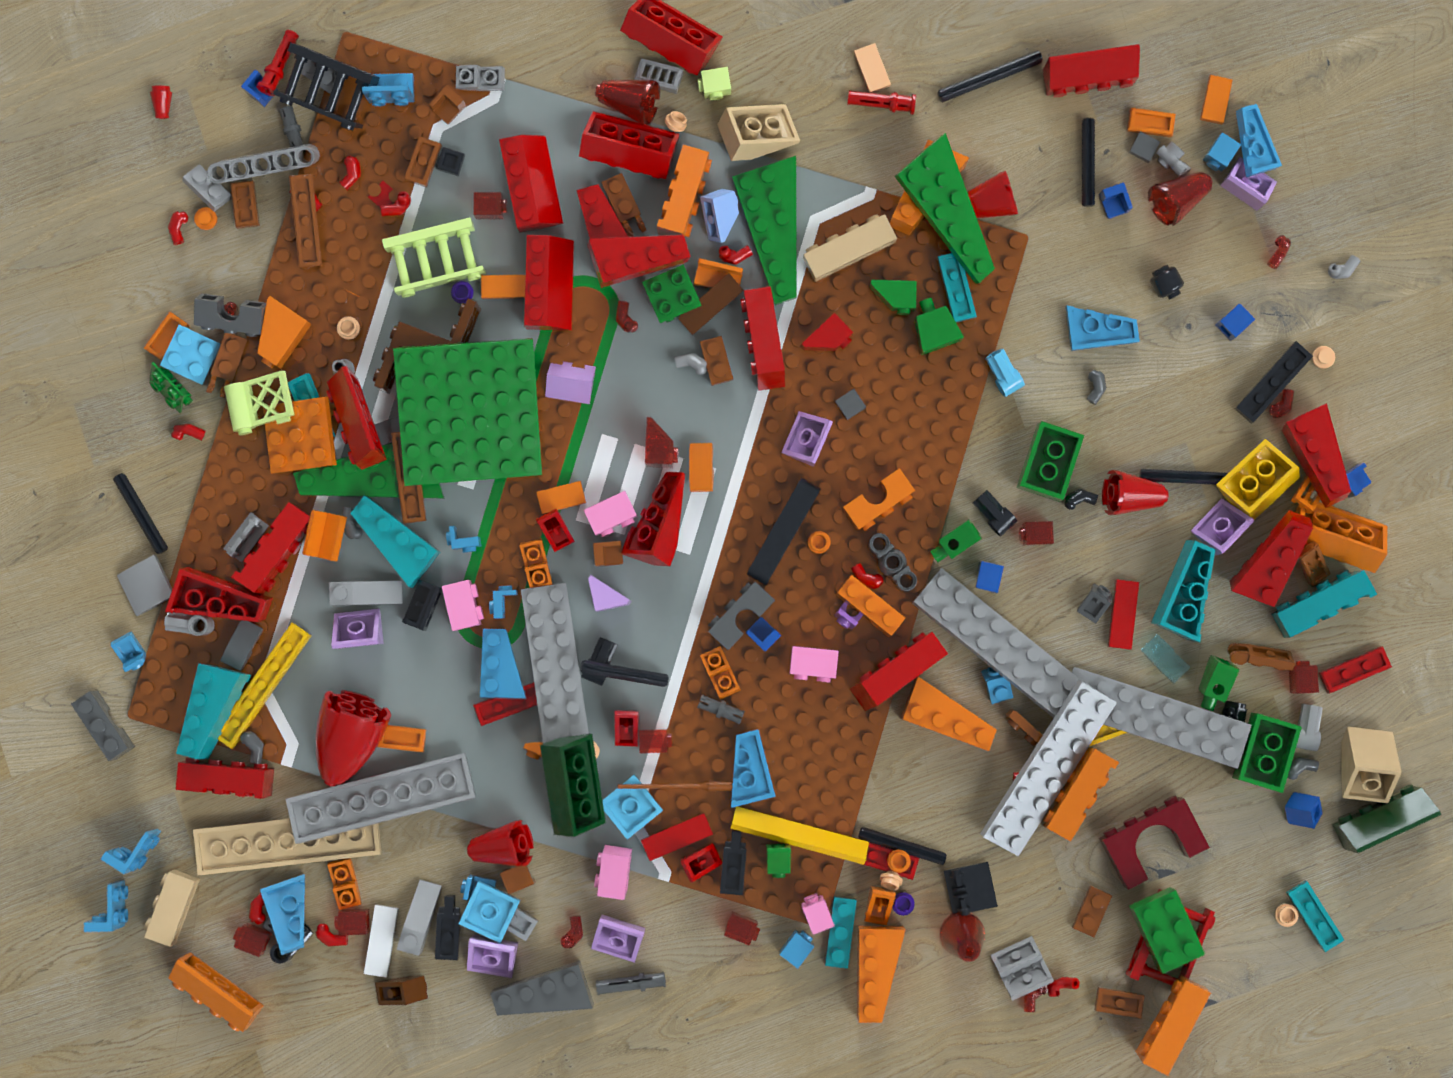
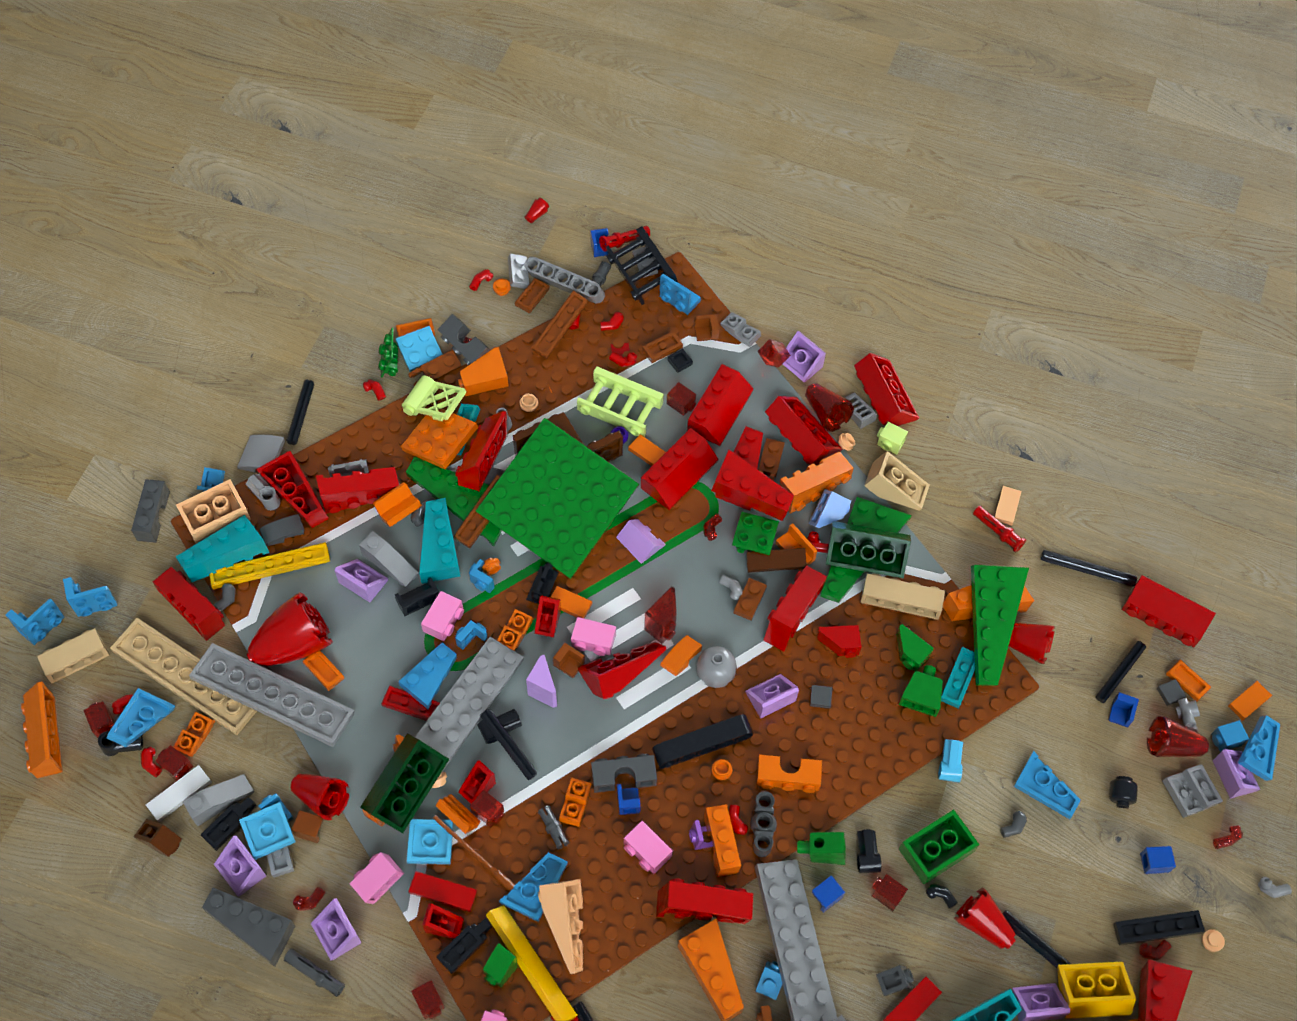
camera: 40 degrees right, 25 degrees down
(165, 682) = (212, 510): none -> light nougat brick
(462, 522) = (491, 566): none -> orange plate
(522, 501) = (543, 583): none -> black hinge
(534, 80) = (774, 353): none -> clear red brick
(563, 62) = (805, 357): none -> lavender slope
(629, 765) = (458, 813): none -> orange tile
(739, 451) = (716, 666): none -> light grey cylinder
(787, 228) = (868, 549): none -> dark green slope
(790, 776) = (561, 908): none -> light nougat wedge
(1222, 230) = (1192, 791): none -> light grey slope

